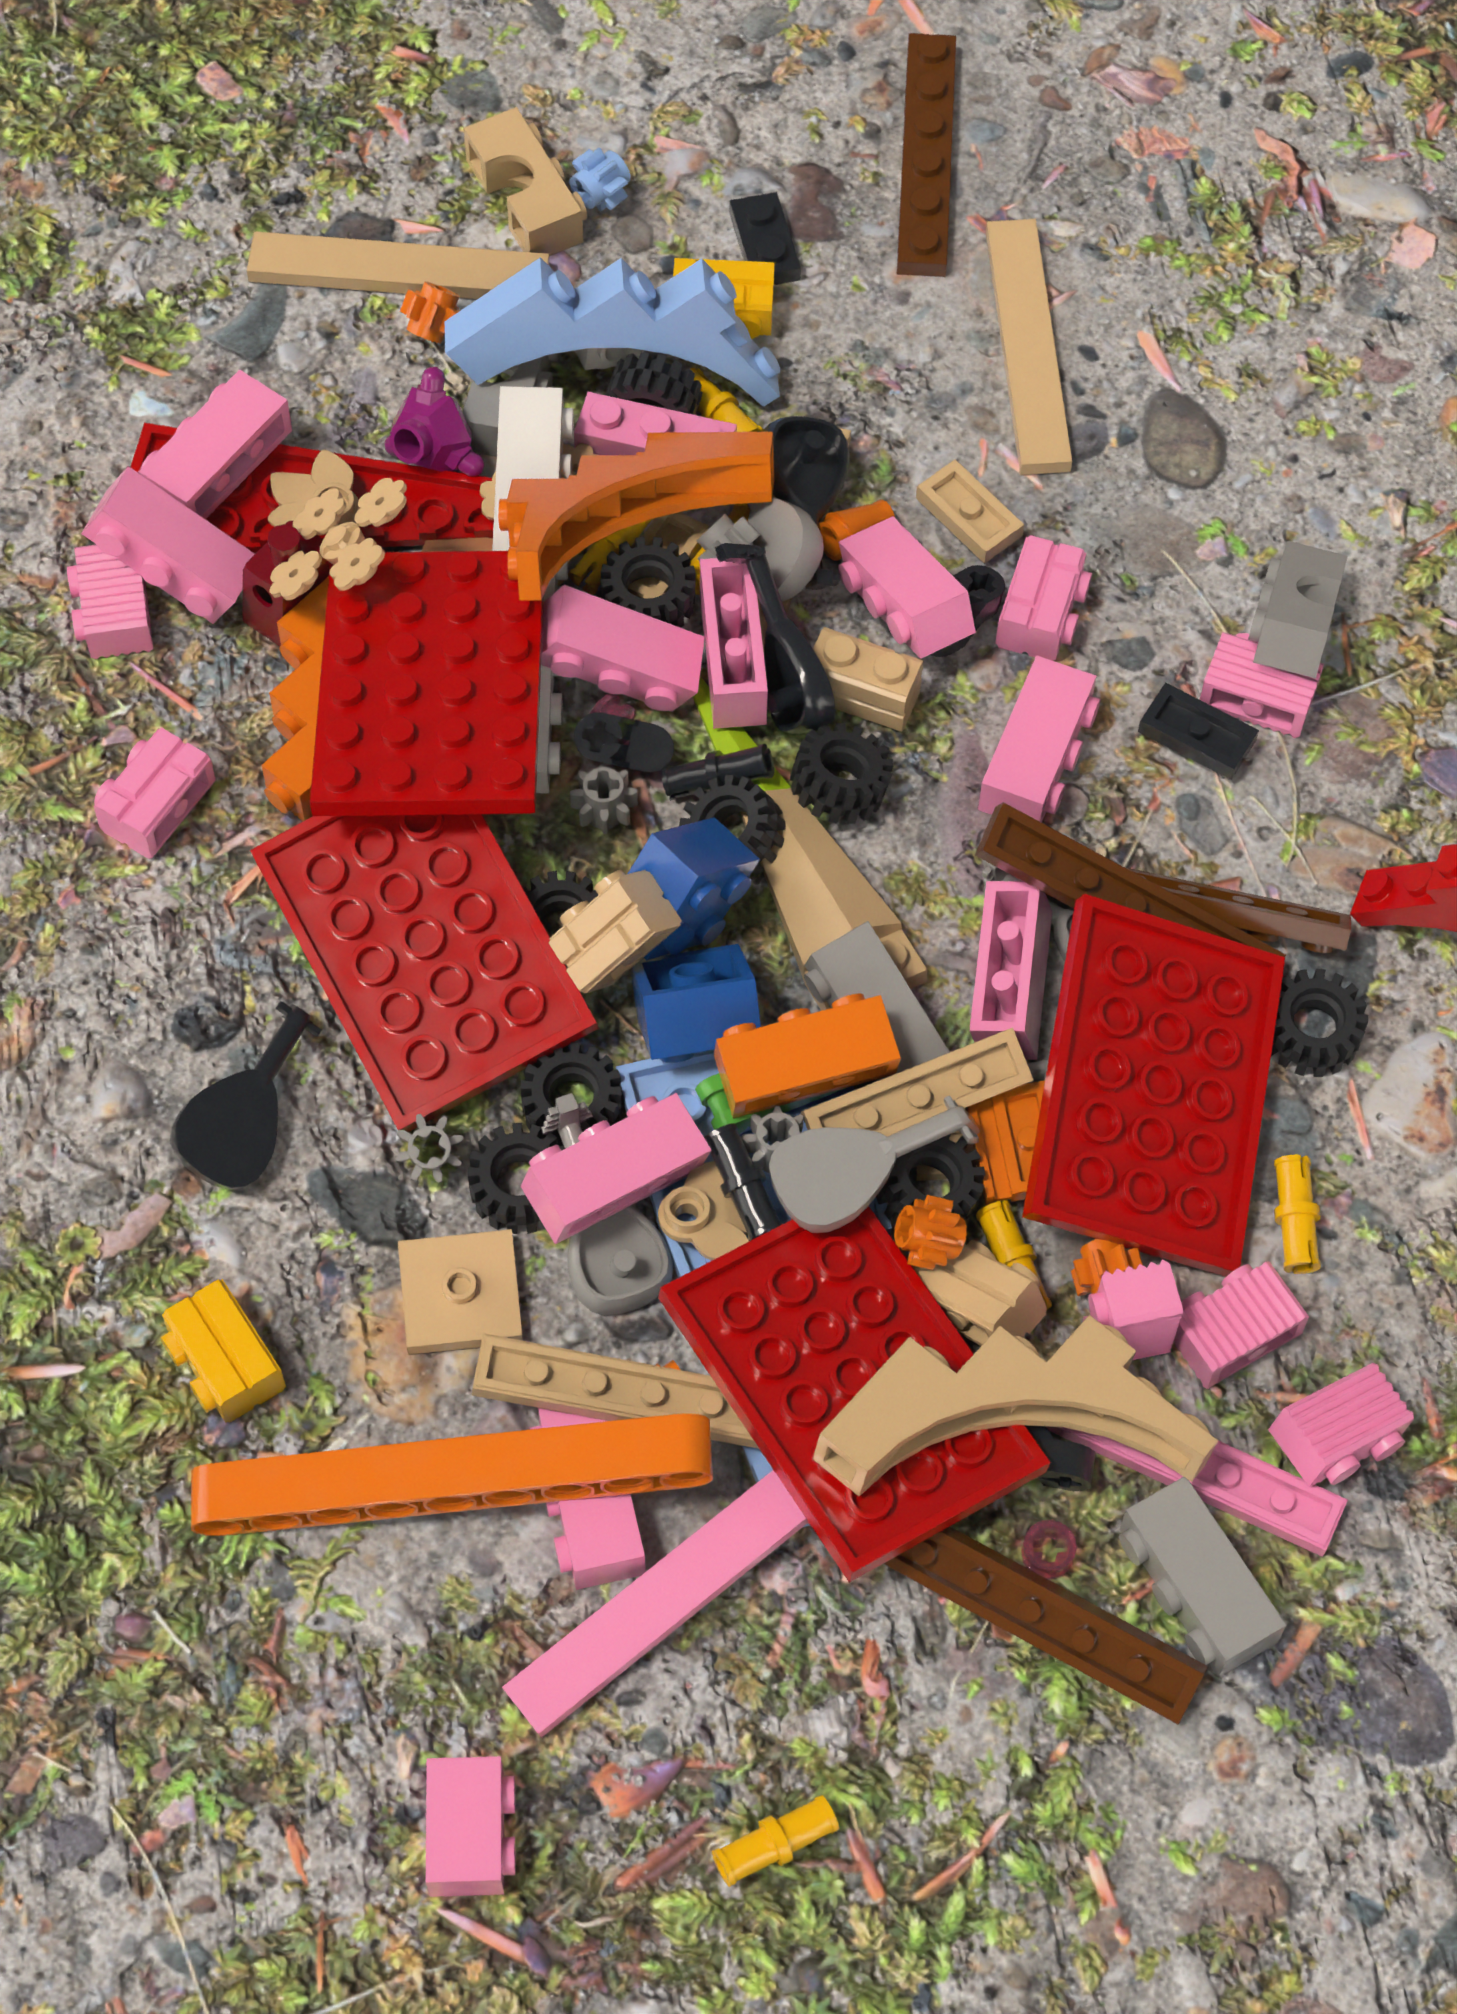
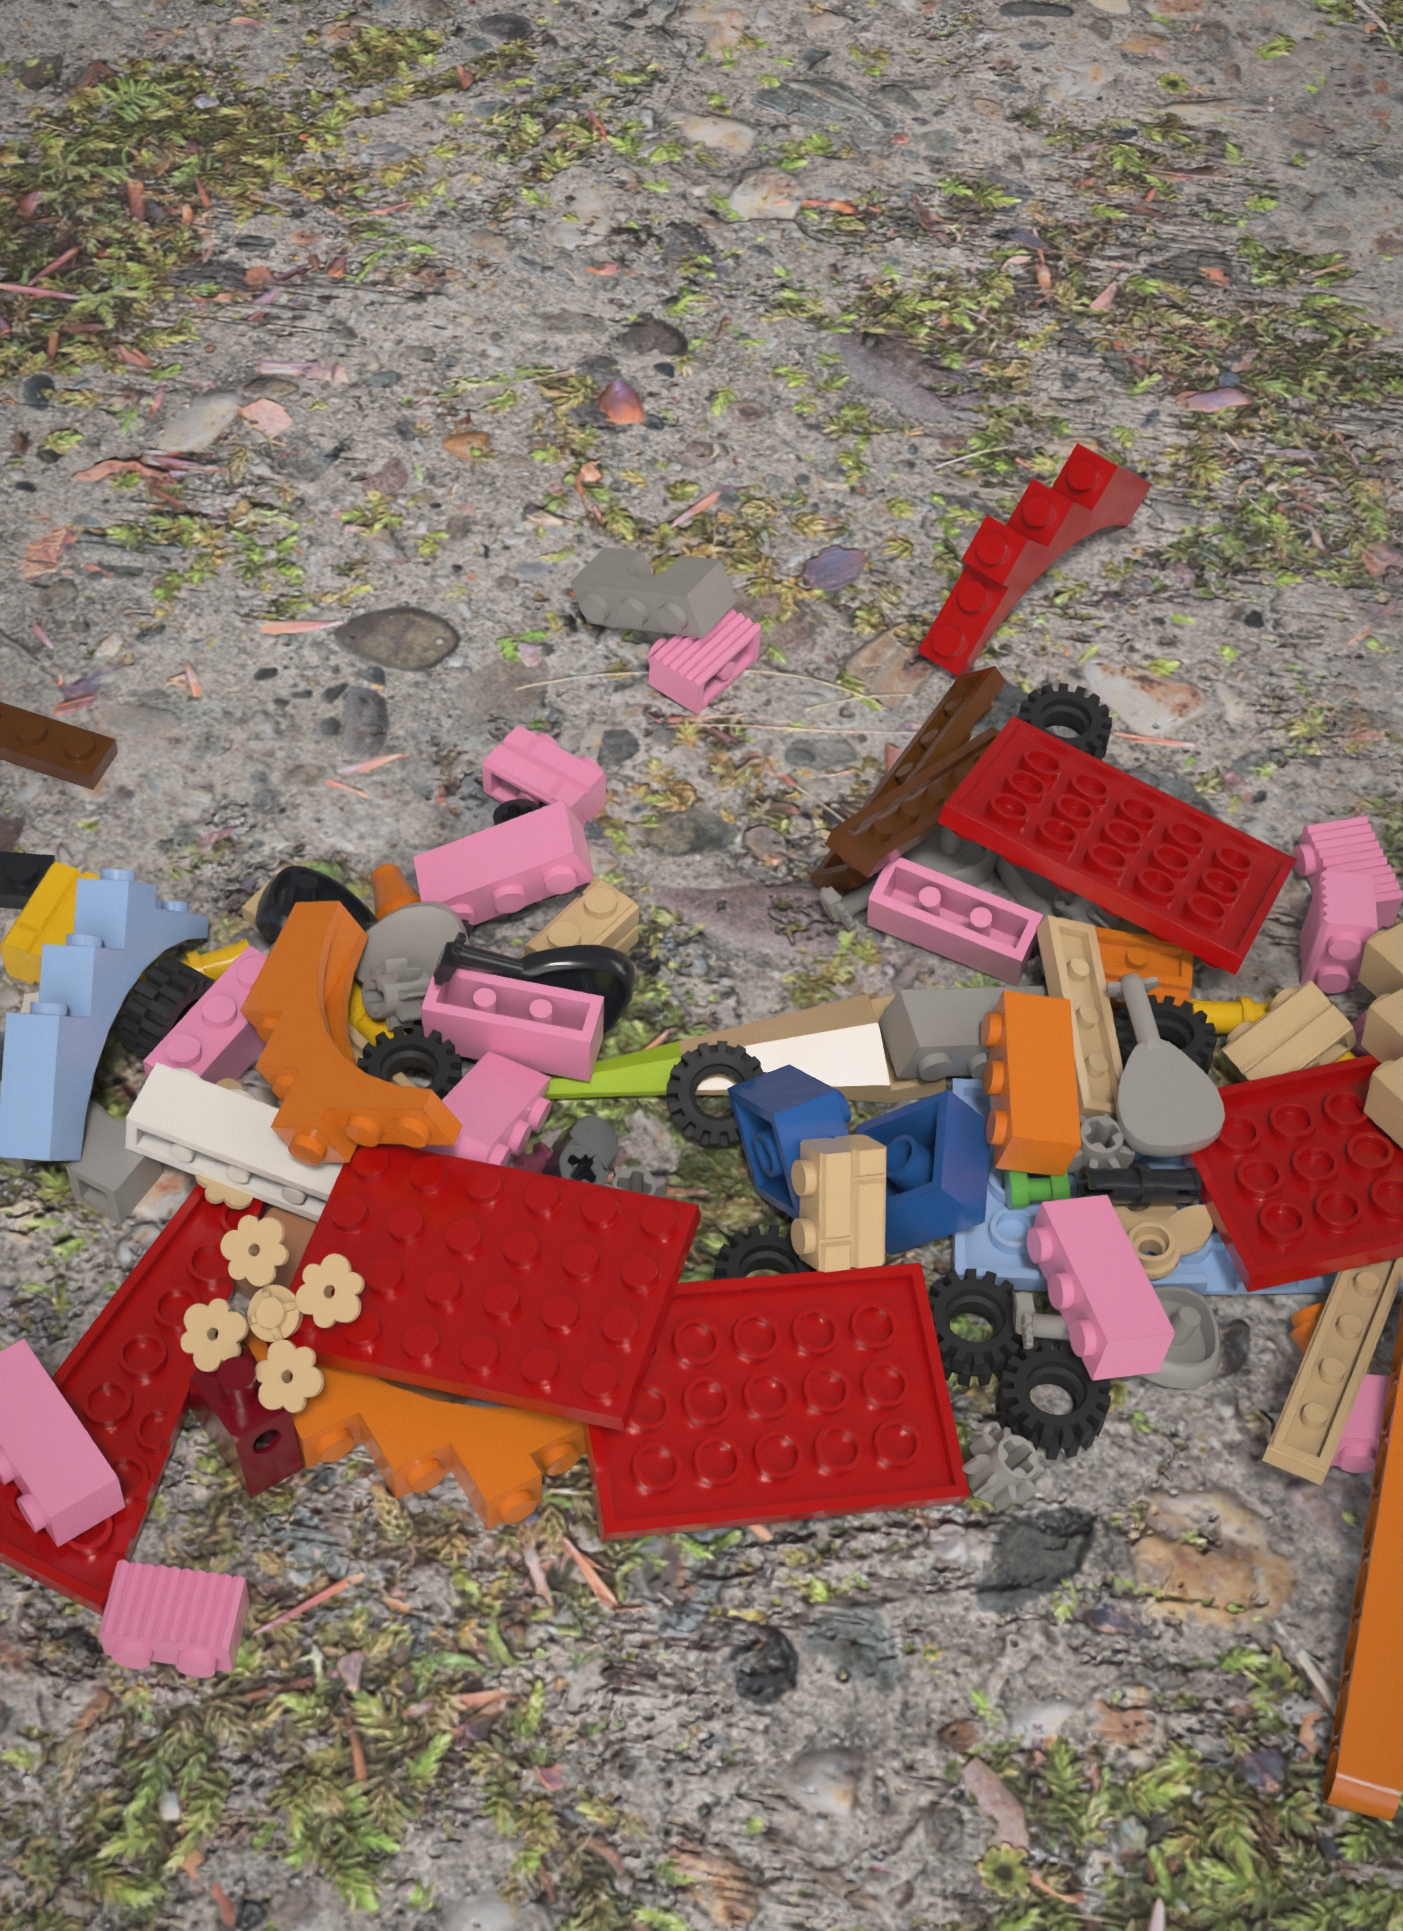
camera: 75 degrees left, 10 degrees down
(153, 792) = (461, 1637): bright pink brick -> none
(169, 545) = (156, 1518): bright pink brick -> none
(222, 1351) = (1191, 1735): yellow brick -> none
(232, 1125) = (922, 1655): black piece -> none
(295, 489) = (138, 1366): tan plate -> none
(433, 429) = (113, 1224): magenta rock -> none
(459, 1290) = (1163, 1493): tan plate -> none
(688, 777) = (646, 1090): black pin -> none
(835, 794) = (707, 994): black tyre -> none
(930, 1232) = (1236, 1061): orange gear -> none
(969, 511) = (416, 808): tan plate -> none
(1028, 347) = (239, 710): tan tile -> none
(1040, 740) = (704, 833): bright pink brick -> none
(1101, 1257) = (1279, 948): orange gear -> none
(1198, 731) = (733, 717): black plate -> none
(1297, 1214) = (1247, 803): yellow pin -> none

